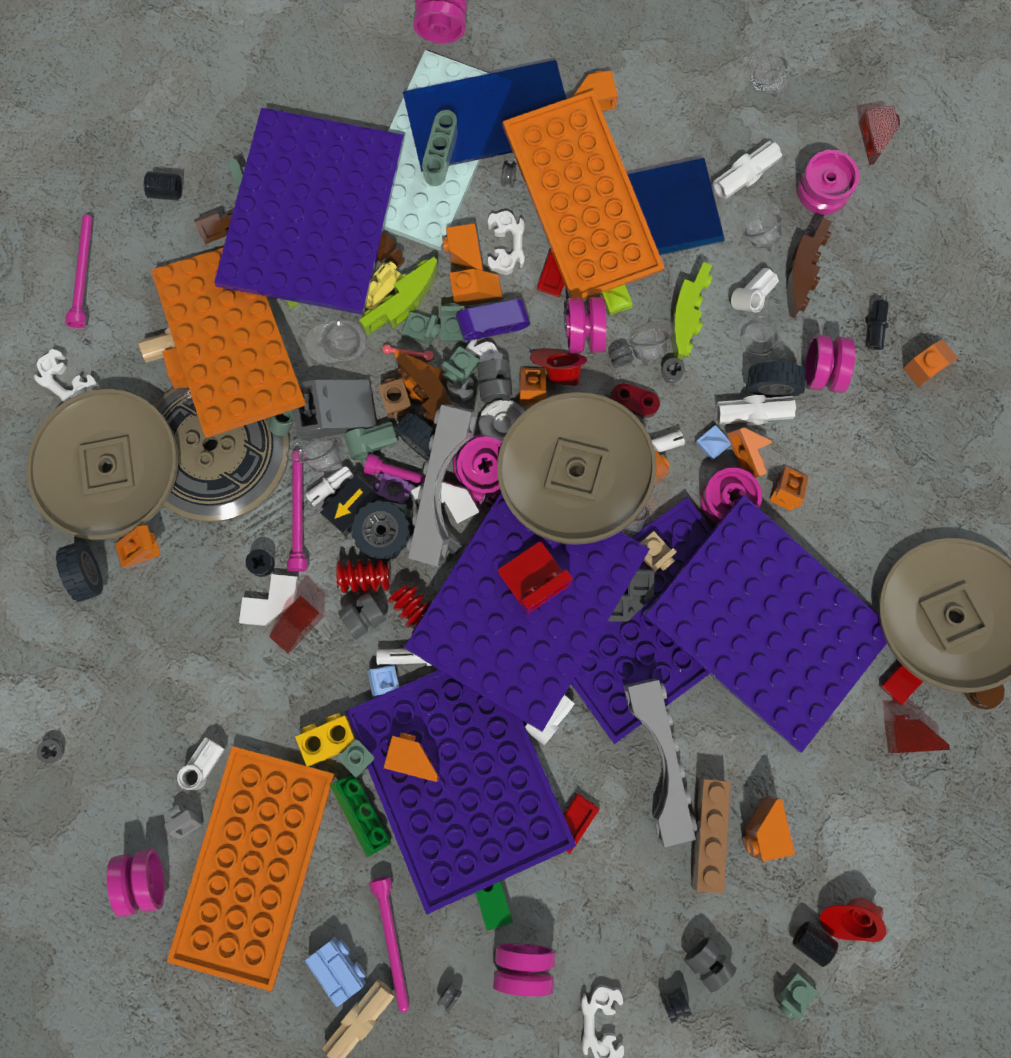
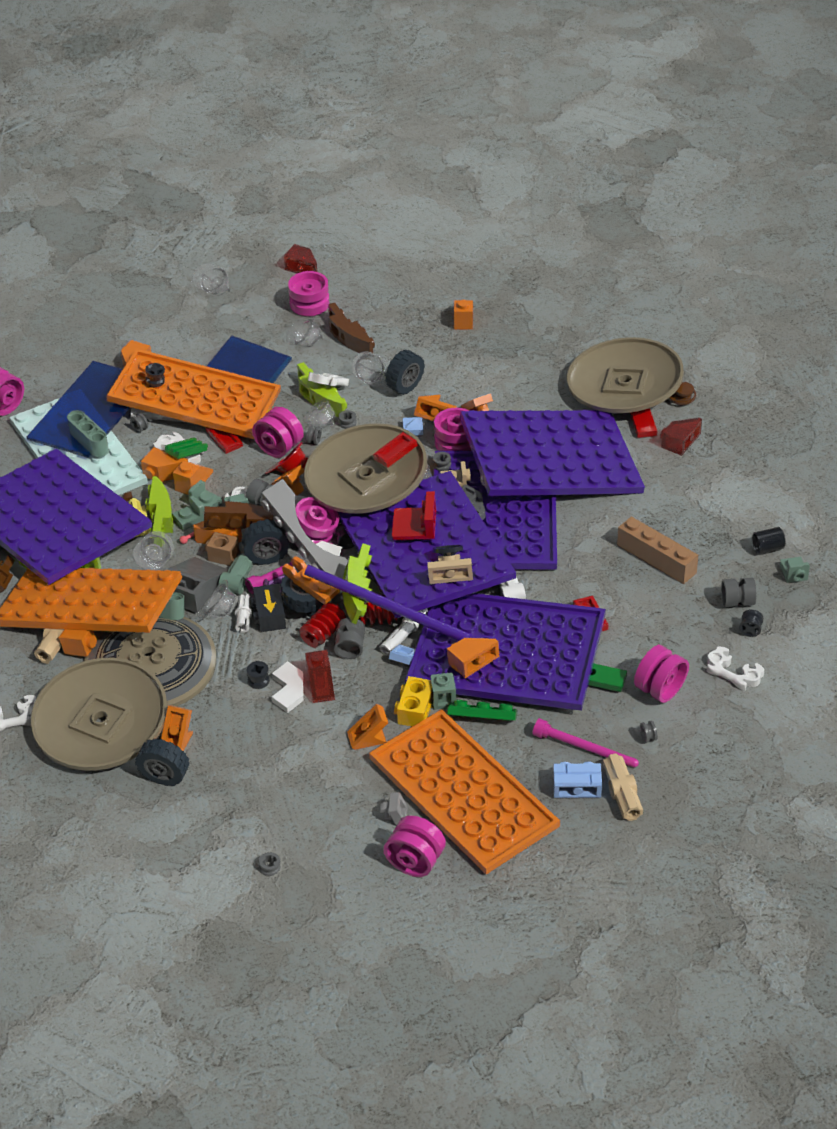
camera: 50 degrees left, 35 degrees down
(202, 762) = (365, 779): white piece -> none
(260, 722) = (368, 729): none -> orange slope
(297, 559) = (277, 655): dark pink piece -> none
(383, 537) = (316, 588): none -> orange hinge
(399, 636) = (385, 603): none -> dark purple piece
(403, 588) = (355, 573): none -> lime slope
(492, 319) = (224, 475): dark purple beam -> none
(497, 250) = (186, 448): none -> green tile
(499, 658) = (449, 566): none -> tan piece
(562, 137) = (155, 375): none -> black wheel
(615, 483) = (395, 449): none -> red tile
(672, 815) = (624, 557): light grey arch -> none
(680, 516) = (442, 456): none -> dark grey bush
(717, 307) = (328, 379): none -> white helmet
(747, 170) = (260, 323): white piece -> none
(753, 295) = (340, 358): white piece -> none
(755, 410) = (410, 394): white piece -> none
(768, 831) = (679, 517): orange slope -> none
(829, 363) = (422, 340): dark pink wheel -> none
(855, 921) = (770, 511): red piece -> none
(878, 325) = (418, 322): black axle -> none

